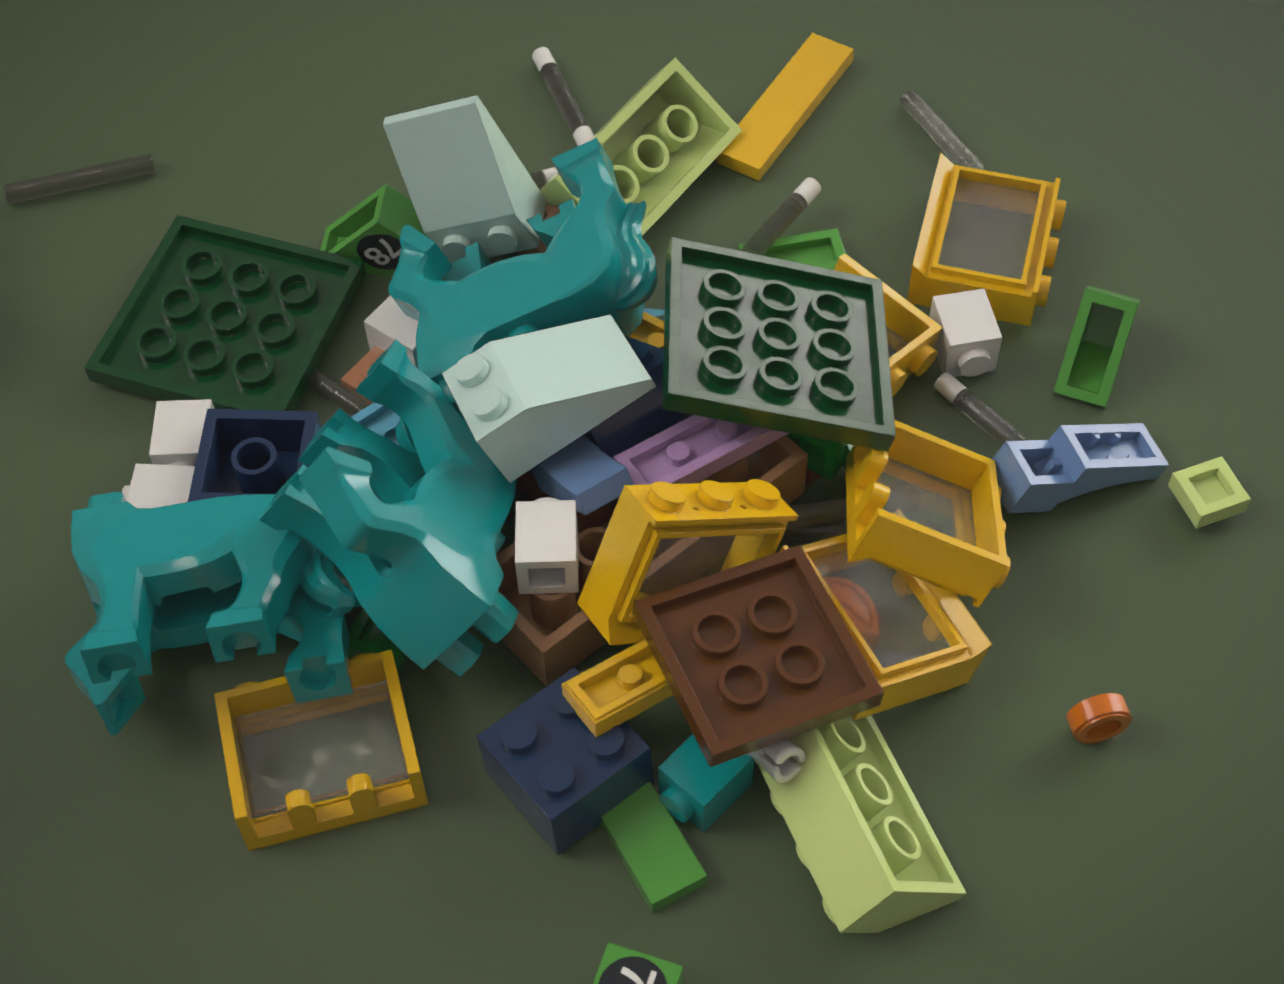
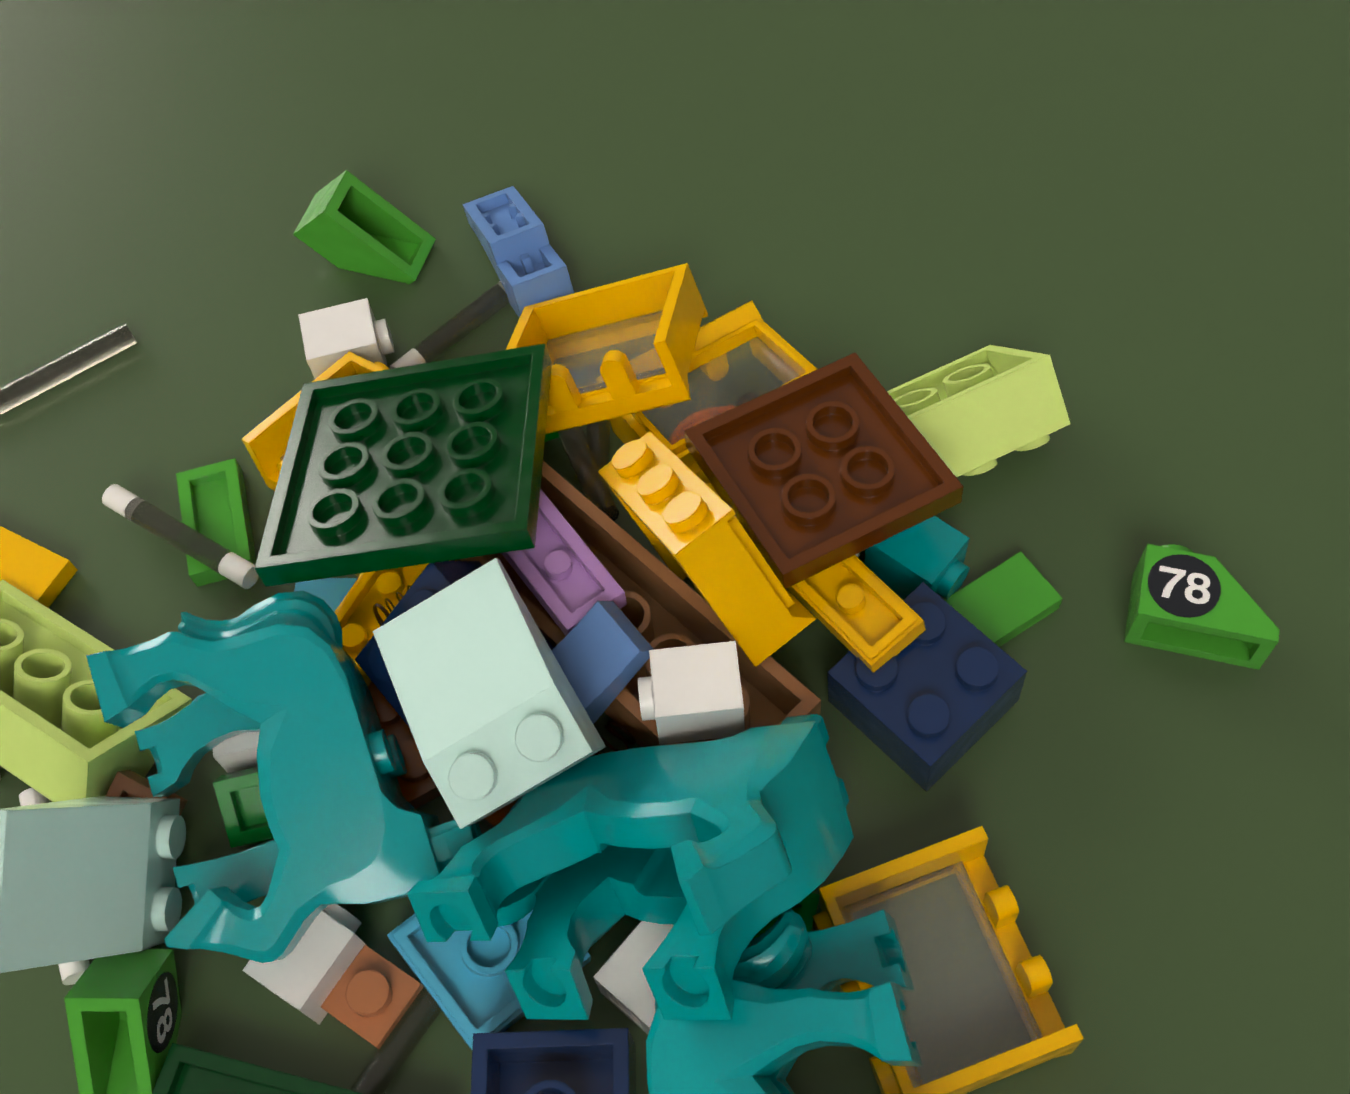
camera: 90 degrees left, 5 degrees up
(987, 235) = (213, 323): window -> none
(1099, 718) = (804, 237): orange tile -> none
(1209, 492) = (545, 156): yellowish green plate -> none

